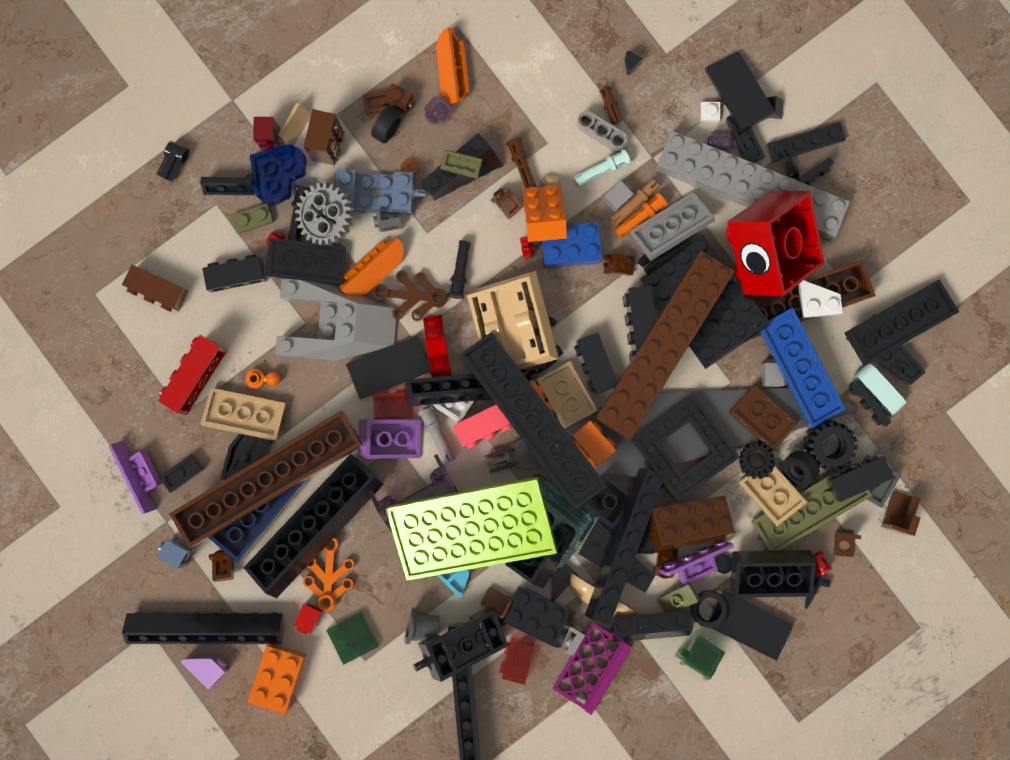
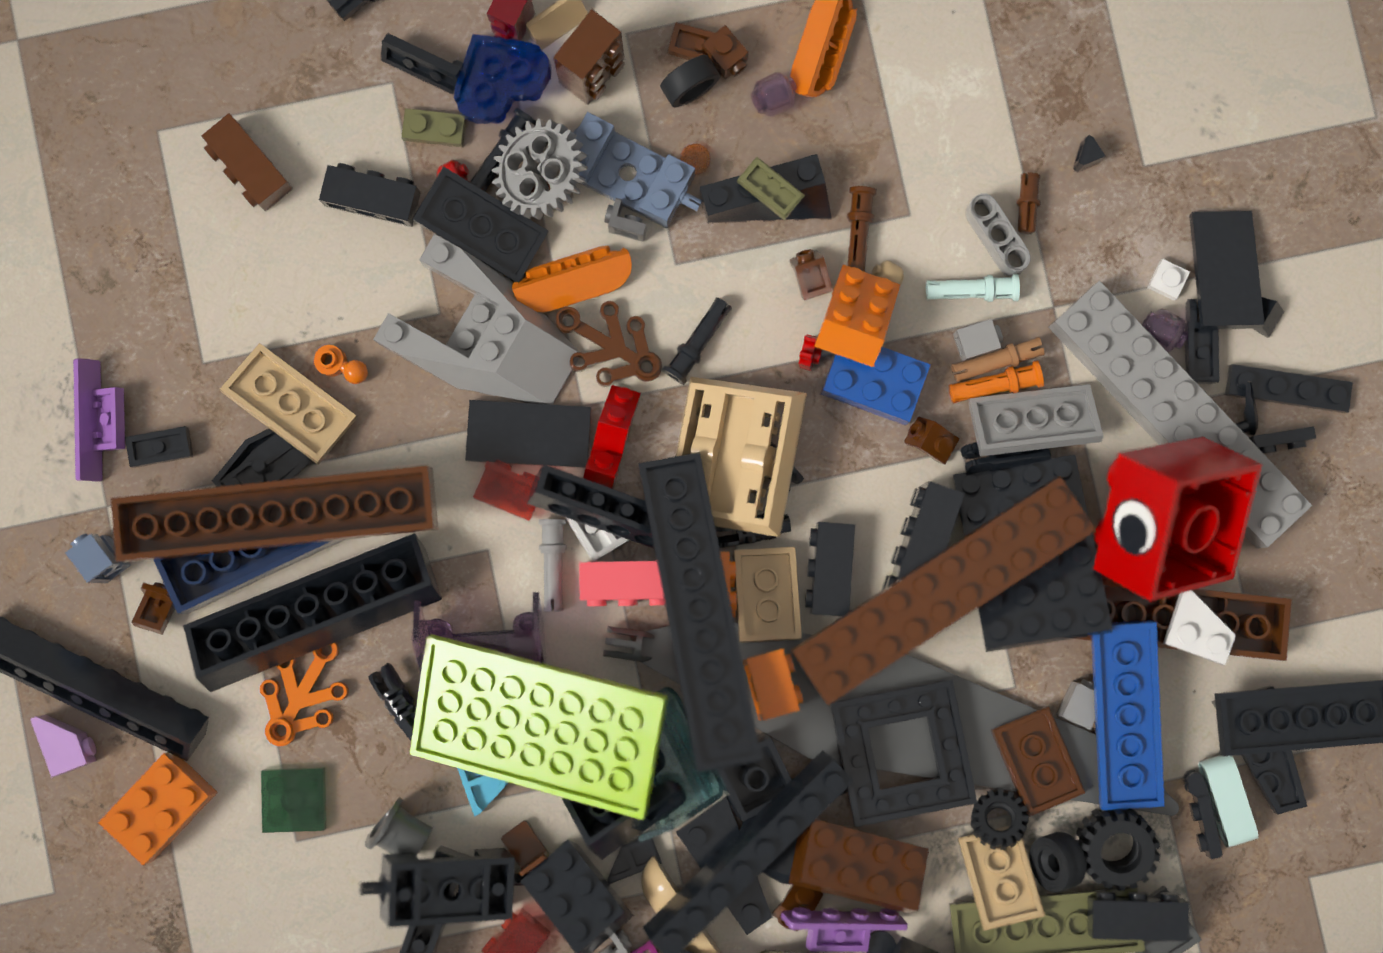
camera: 20 degrees right, 0 degrees up
(192, 375) = (240, 313): red brick -> none
(307, 618) = (242, 741): red brick -> none
(385, 553) = (397, 700): none -> black hinge
(389, 438) = (481, 537): medium lavender slope -> none

